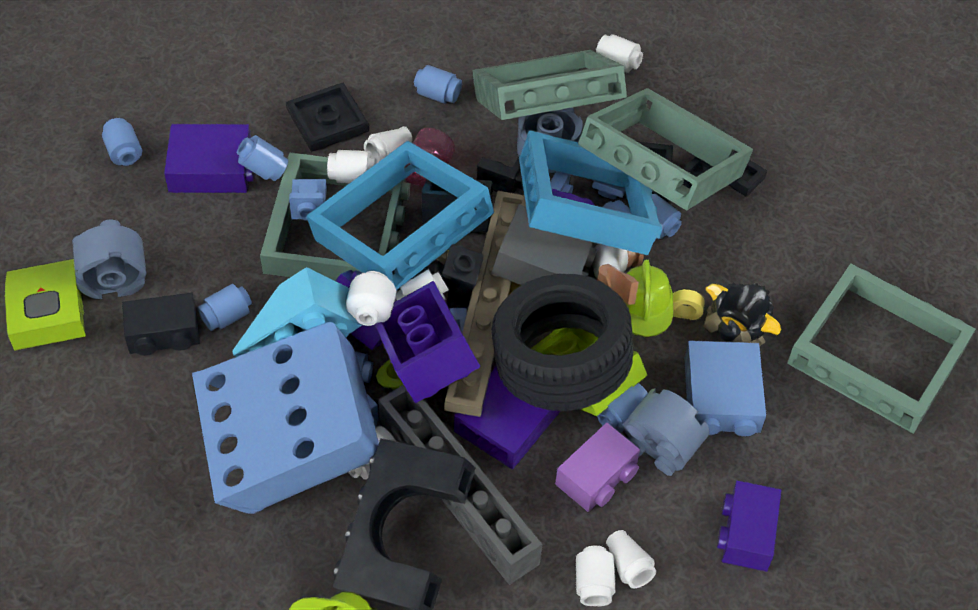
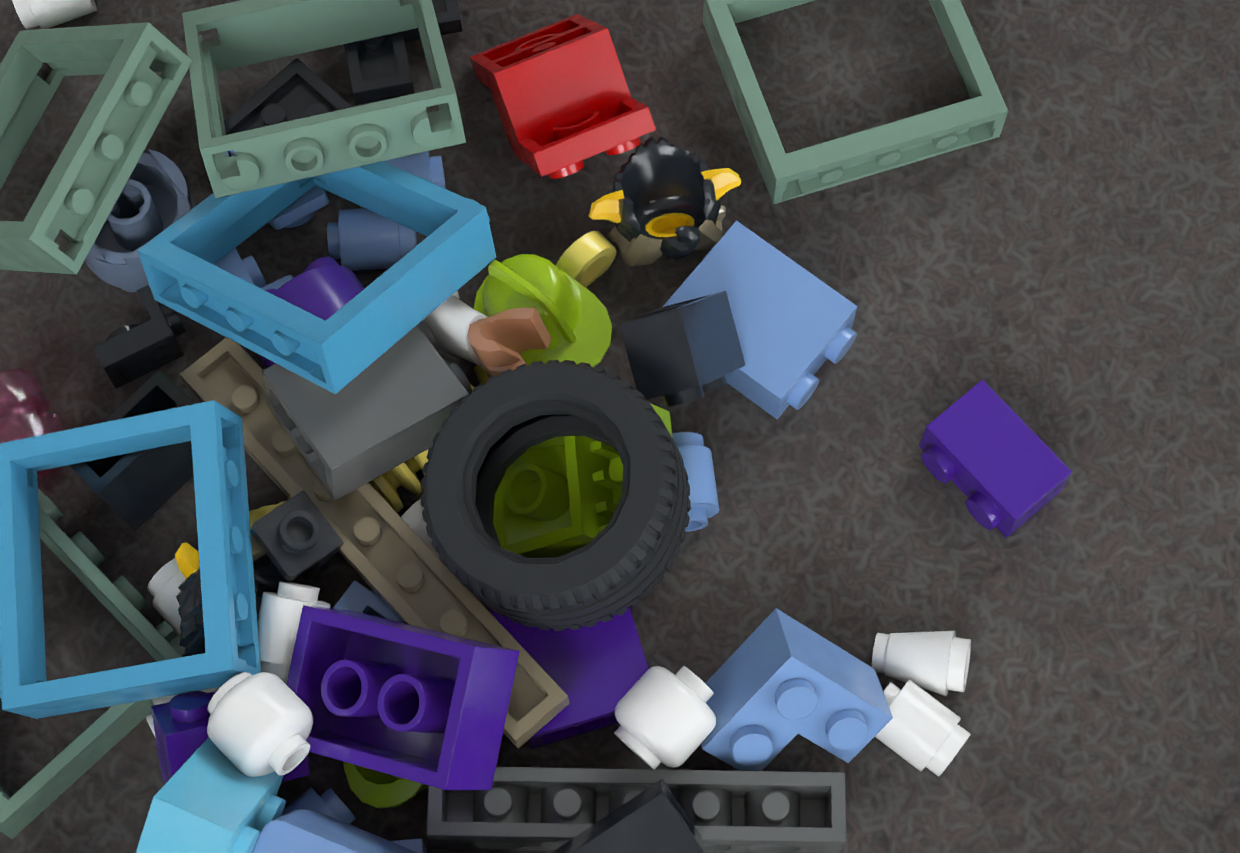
camera: 50 degrees left, 15 degrees up
(505, 454) = (665, 716): none -> white head
(568, 502) = (789, 685): none -> medium blue brick
(598, 467) = (751, 576): medium lavender brick -> none
(666, 430) = (776, 457): sand blue brick -> none
(675, 348) = (683, 348): none -> black brick
(749, 244) = (562, 96): none -> red bracket

